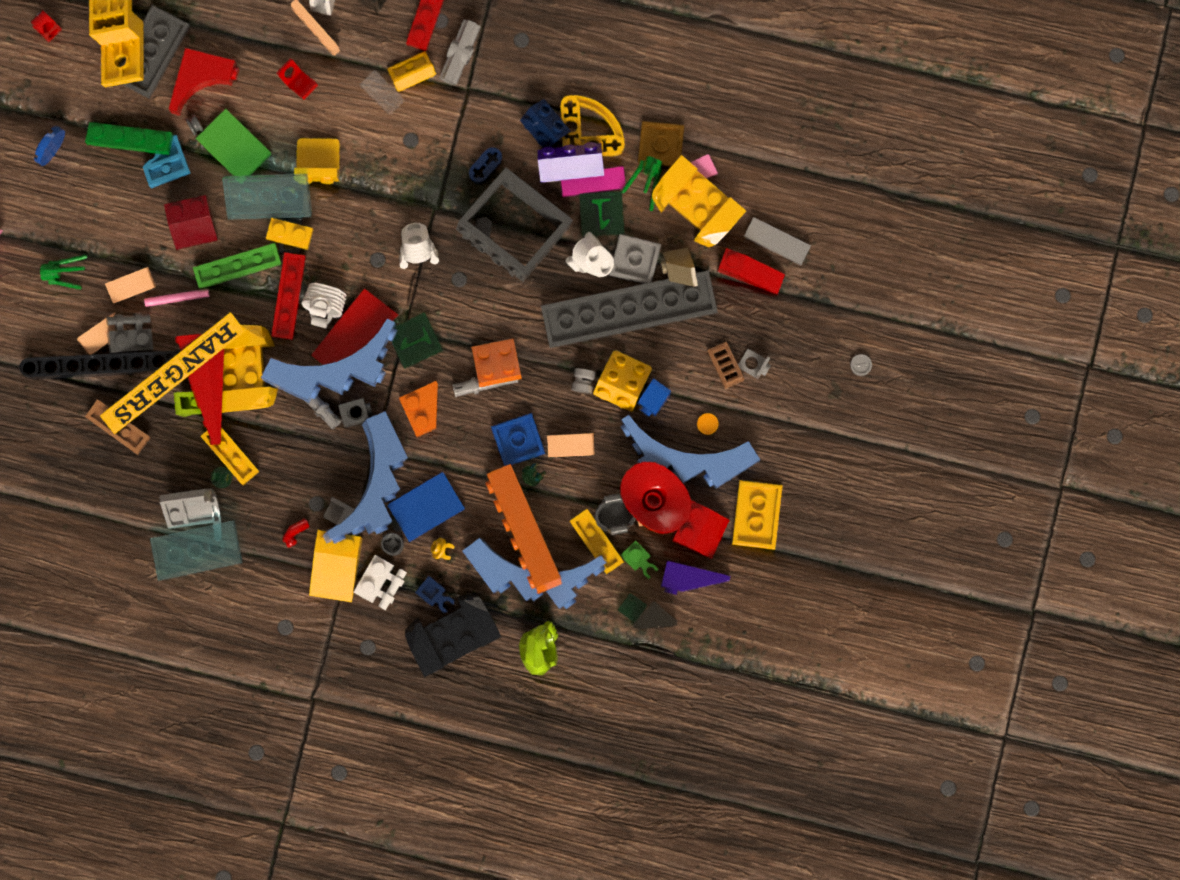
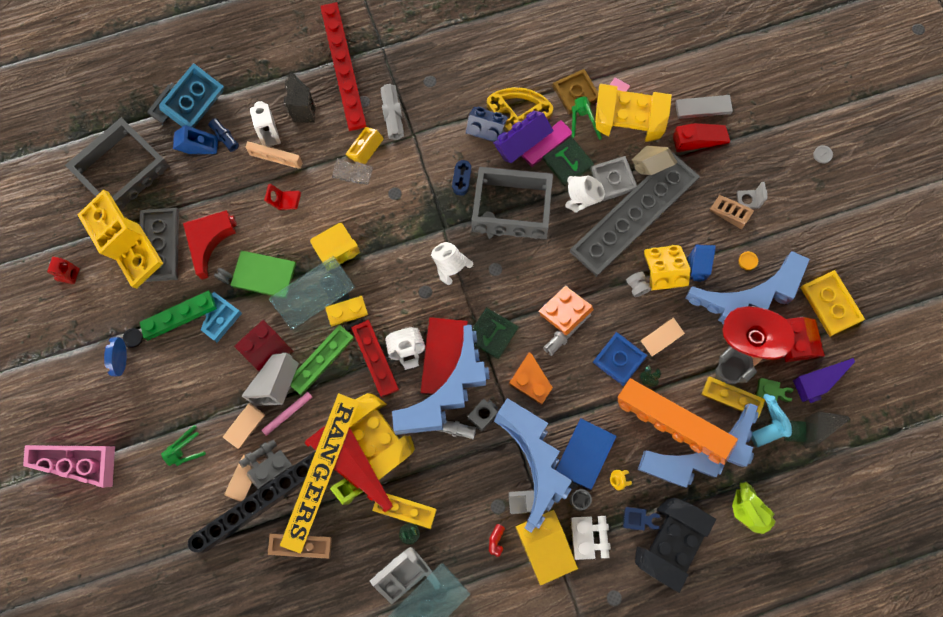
camera: 30 degrees left, 10 degrees down
(75, 132) = (133, 337): none -> black piece
(180, 259) = (272, 381): none -> light grey slope
(615, 594) = (780, 428): none -> medium azure piece

